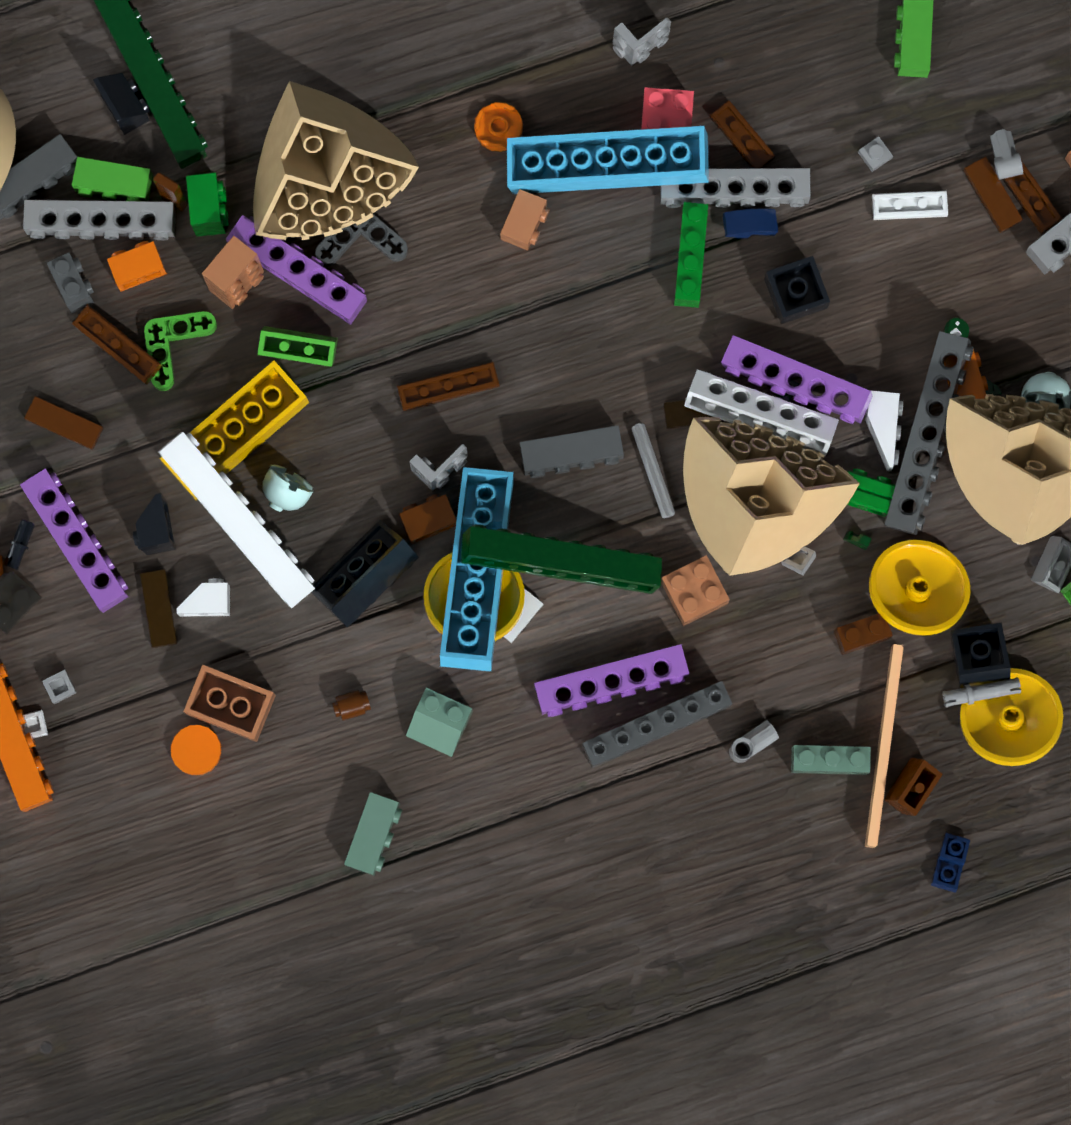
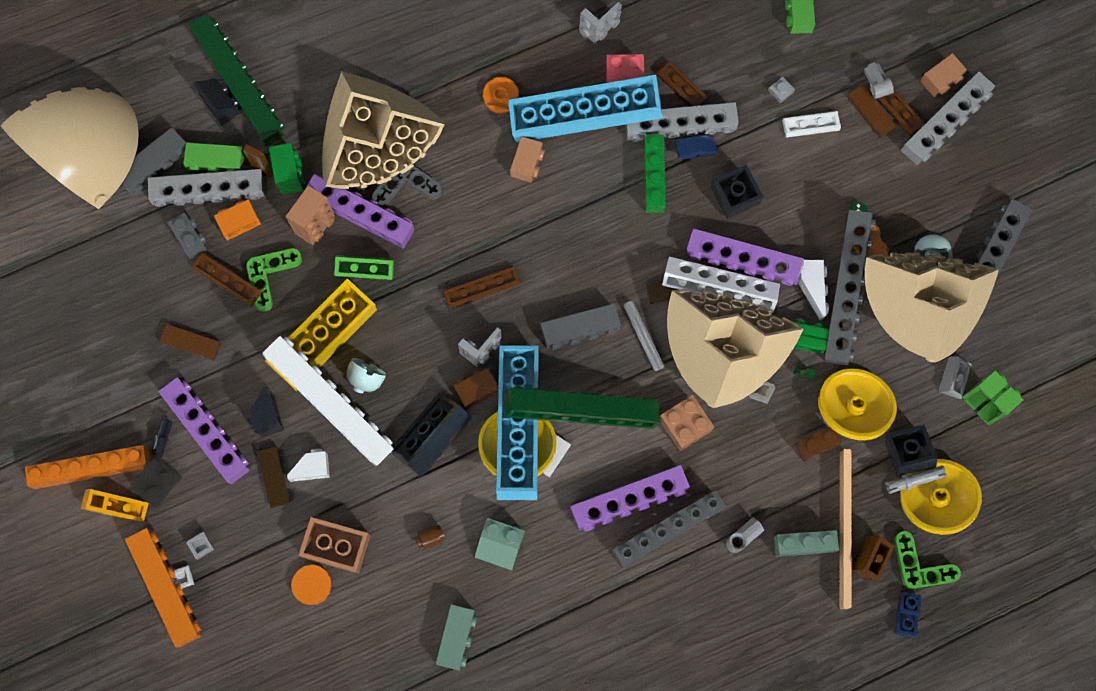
camera: 10 degrees left, 5 degrees down
(971, 812) = (920, 574): none -> bright green beam

